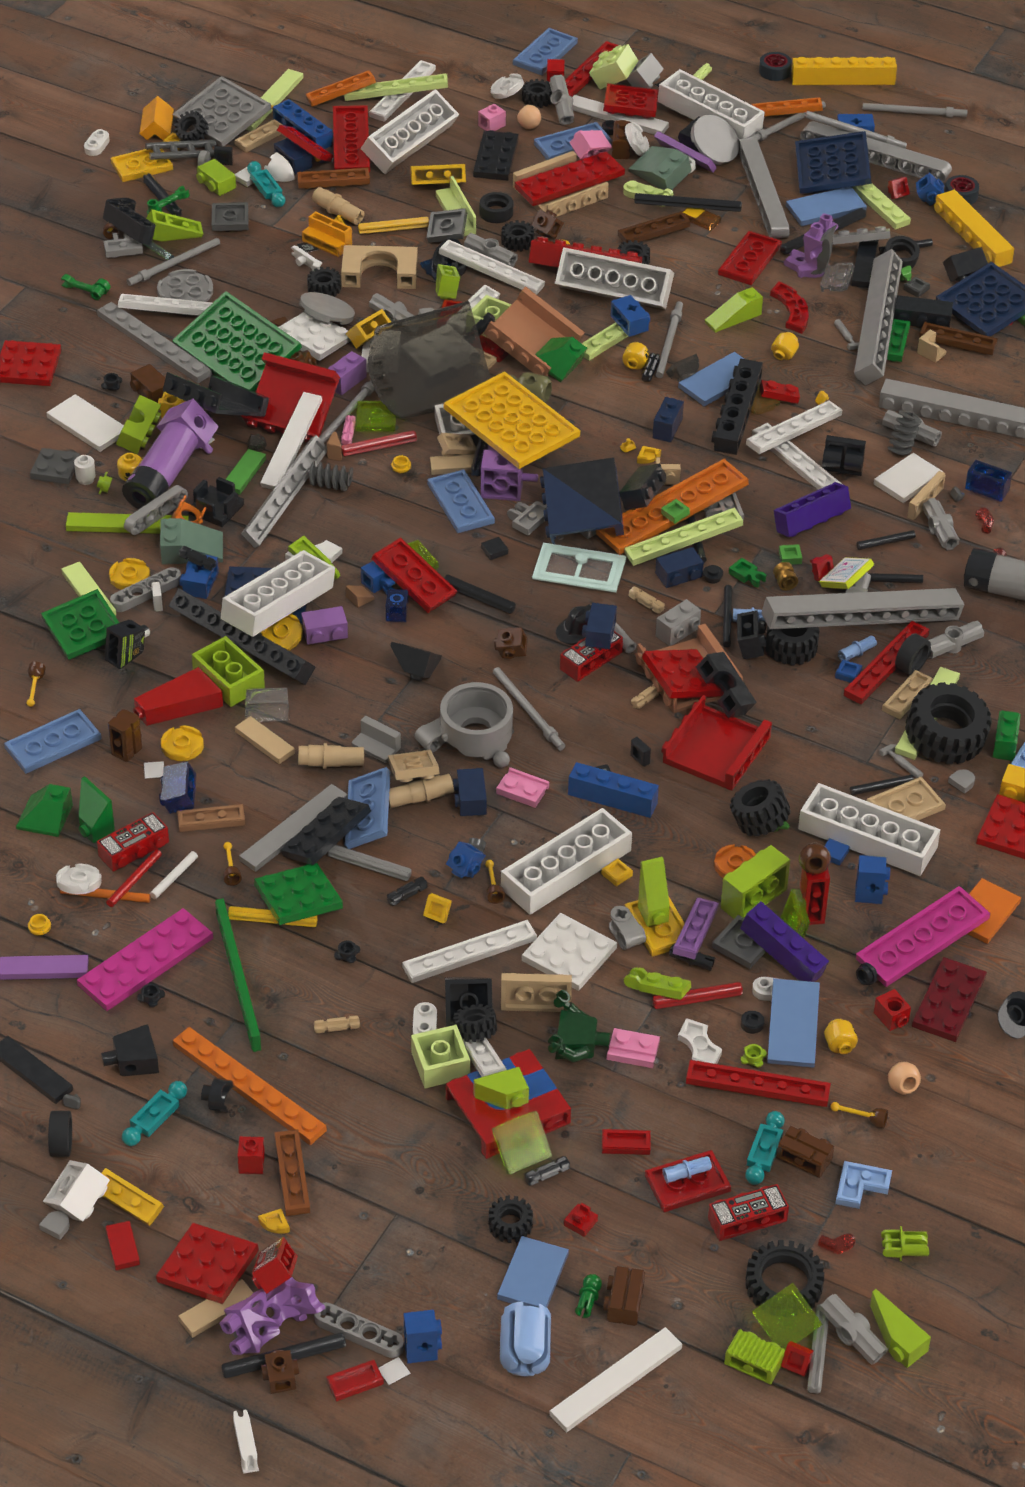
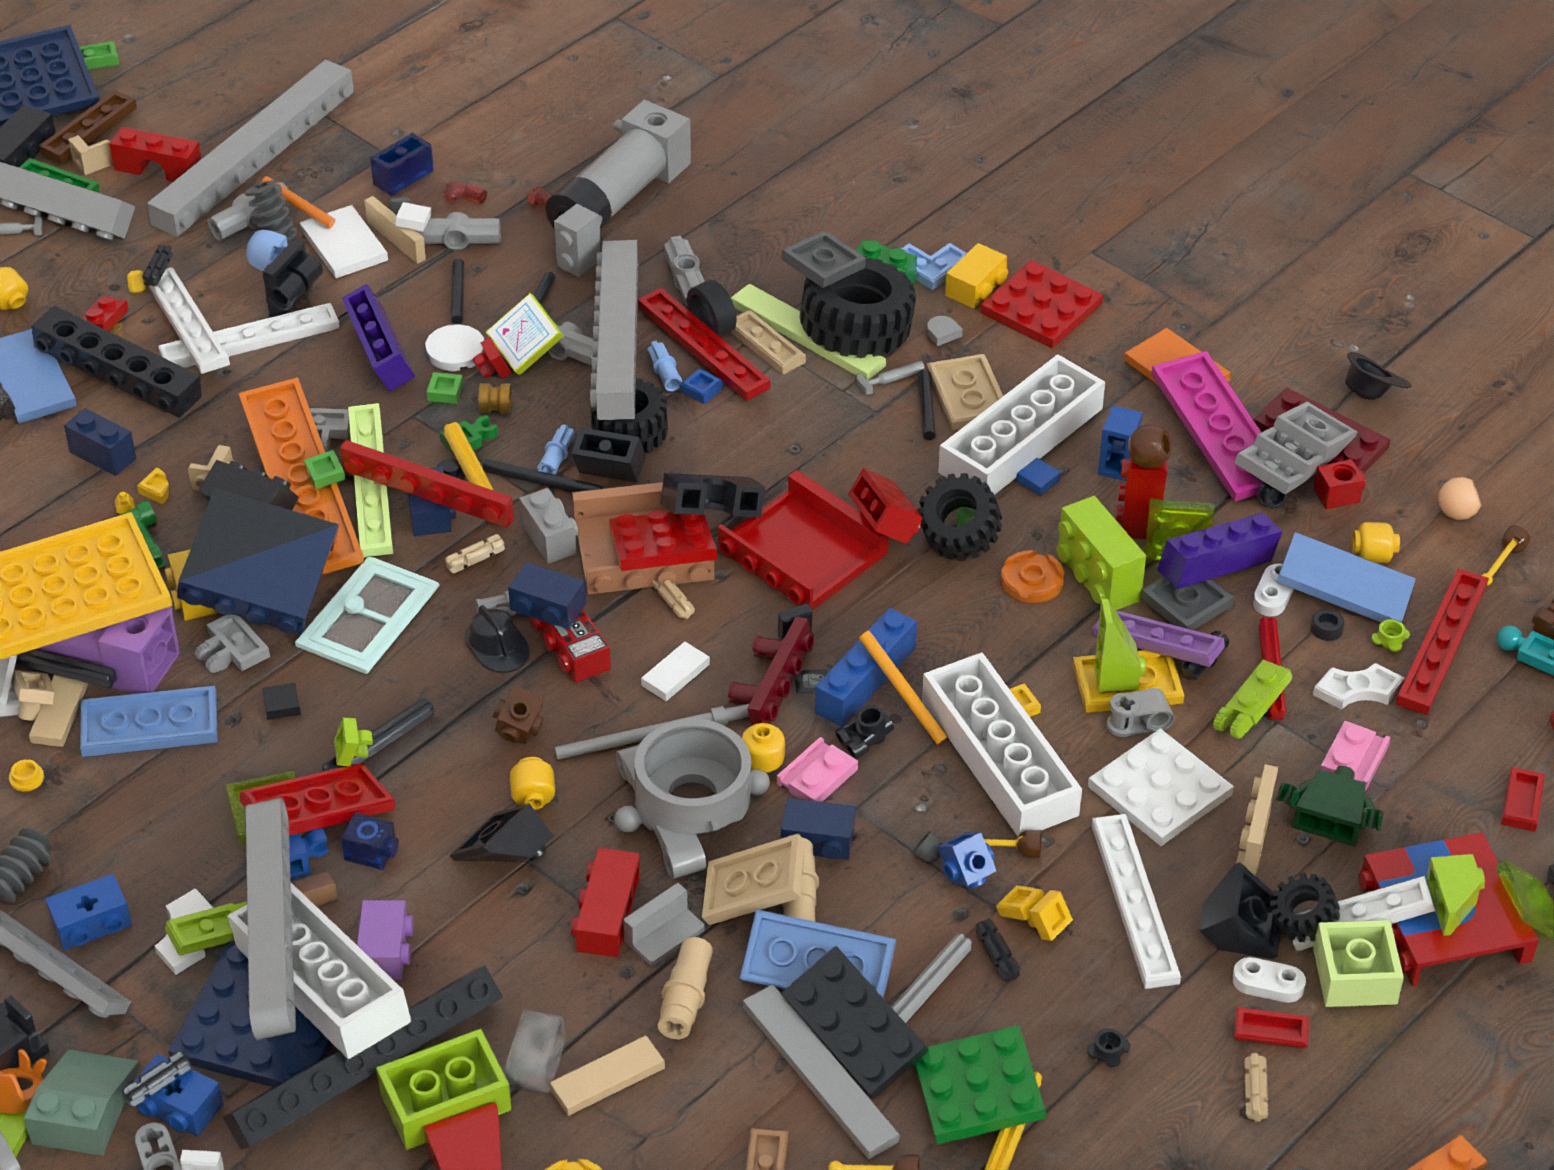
camera: 75 degrees left, 0 degrees up
(295, 558) = (269, 920): none -> light grey beam
(311, 511) = (88, 912): none -> blue brick
(385, 1027) = (1271, 1028): none -> red tile
(392, 711) = (606, 902): none -> red brick
(447, 892) = (1019, 902): none -> yellow tile
(459, 575) = (351, 742): none -> lime tile
(462, 661) = (532, 782): none -> yellow head
(525, 754) = (765, 746): none -> yellow head
(560, 799) = (867, 731): none -> black plate
(582, 708) = (675, 671): none -> white tile
(592, 752) = (776, 684): none -> dark red plate
(601, 793) = (903, 687): none -> light orange bar
(619, 454) = (146, 517): none -> green brick
(673, 558) = (427, 483): none -> red plate
(713, 578) = (466, 455): none -> yellow axle
(750, 767) = (885, 506): none -> red brick
(830, 545) = (454, 347): none -> white tile
(835, 400) = (157, 265): none -> black axle
(877, 447) = (264, 248): none -> light blue brick
(911, 975) = (1295, 447): none -> light grey slope
(922, 443) = (305, 206): none -> orange bar
(929, 494) = (413, 216): none -> white tile
(941, 368) = (136, 148): none -> red arch
(948, 572) = (577, 240): none -> light grey brick
(960, 682) = (823, 259): none -> dark grey plate

